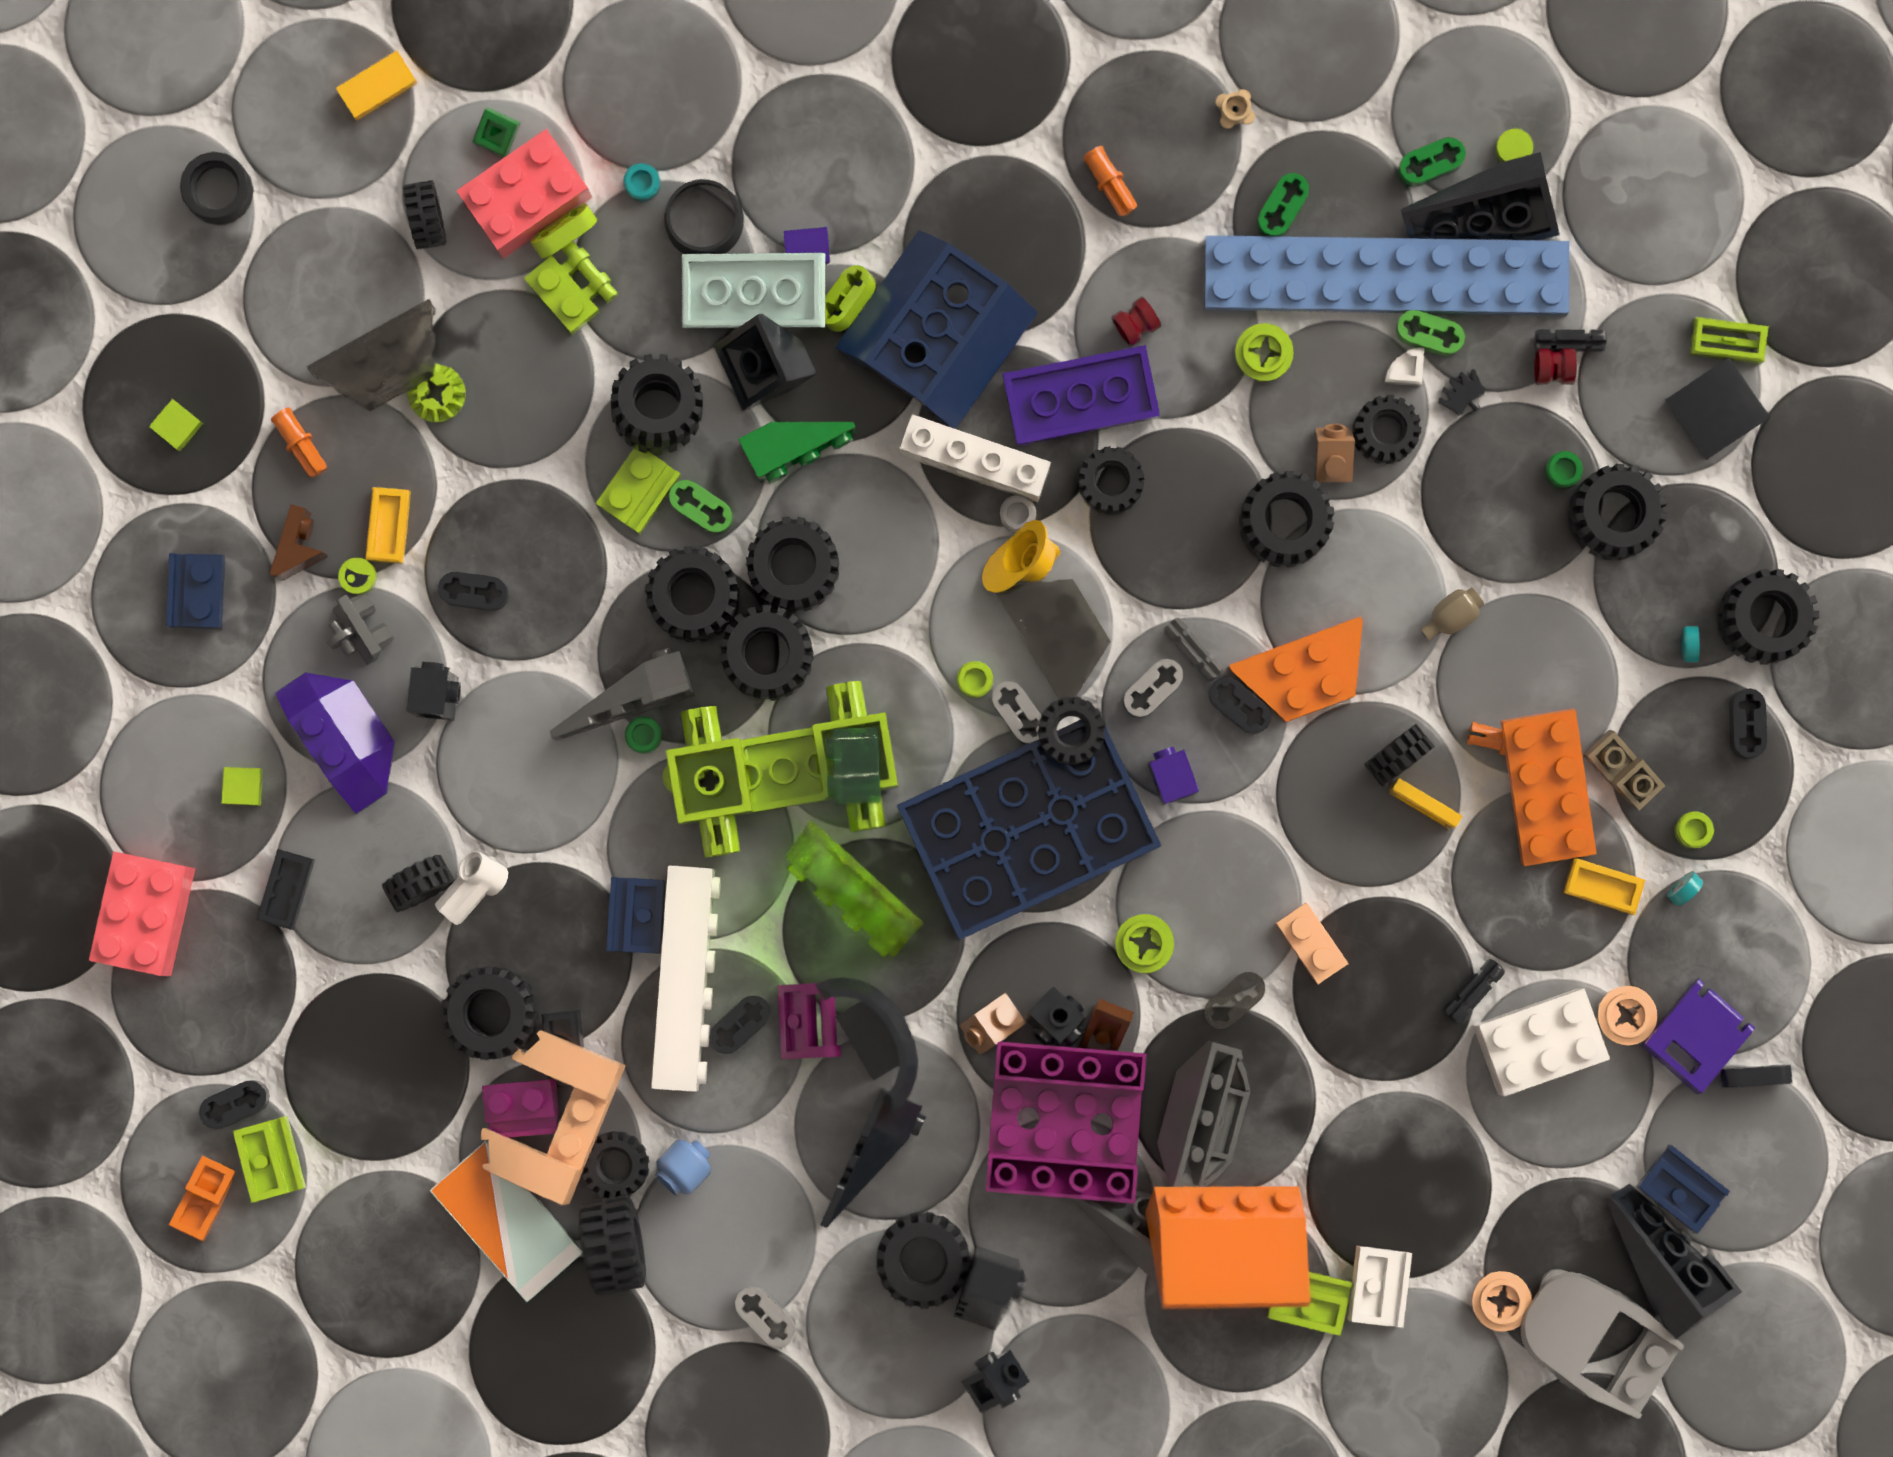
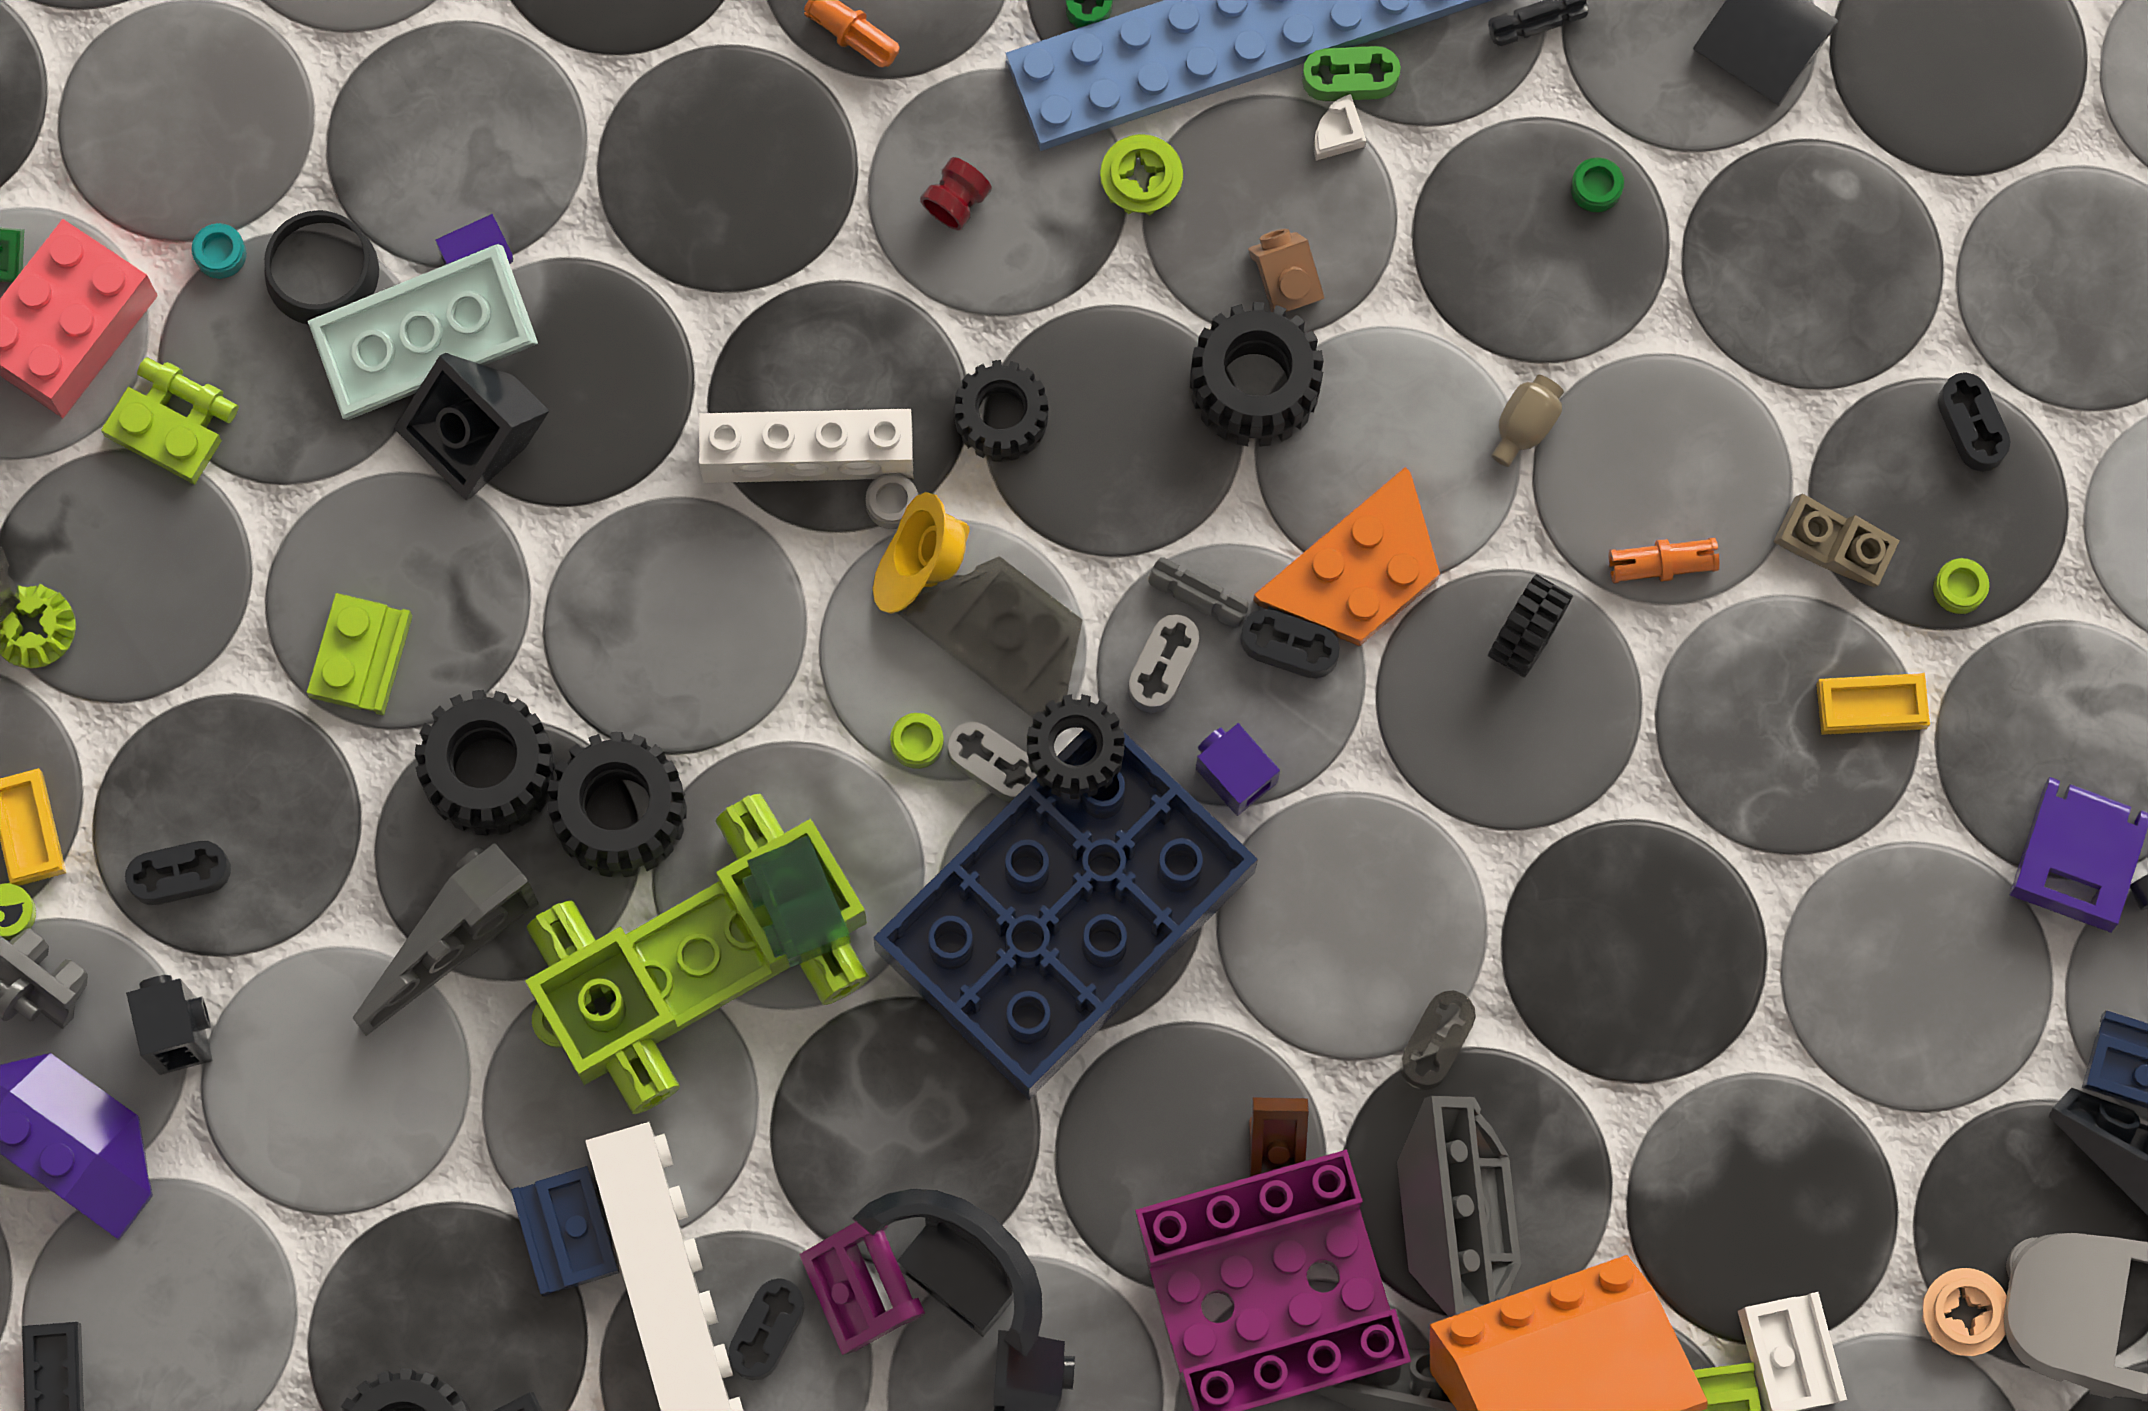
camera: 25 degrees left, 10 degrees down
(418, 883) = (240, 1296): black tyre -> none
(476, 879) = (322, 1261): white piece -> none
(563, 230) = (133, 348): lime beam -> none
(643, 735) = (486, 982): green tile -> none
(656, 376) = (337, 490): black tyre -> none
(705, 499) = (458, 634): bright green beam -> none
(785, 444) = (541, 519): green slope -> none
(787, 533) = (601, 632): black tyre -> none
(847, 297) = (555, 300): lime beam -> none
(853, 889) = (857, 1075): clear neon green slope -> none
(960, 340) = (730, 295): dark blue slope -> none
(992, 1024) = (1116, 1194): medium nougat bracket -> none
(1058, 1007) = (1204, 1151): black brick -> none
(1081, 395) = (918, 315): dark purple plate -> none
(1160, 935) = (1302, 990): lime gear -> none
(1311, 943) = (1512, 924): light nougat plate -> none
(1402, 414) = (1348, 185): black tyre -> none
(1425, 804) = (1590, 680): yellow tile -> none
(1463, 394) = (1425, 136): black piece -> none
(1474, 991) = (1757, 905): black axle -> none
(1541, 1042) = (1874, 937): white brick -> none
(1548, 787) = (1745, 597): orange plate -> none
(1555, 366) = (1532, 56): dark red wheel -> none
(1638, 490) = (1695, 170): black tyre -> none
(1644, 1016) = (1999, 858): light nougat gear -> none
(1685, 888) = (1982, 664): teal tile -> none
(1690, 644) = (1856, 345): teal tile -> none
(1797, 610) = (1964, 239): black tyre -> none

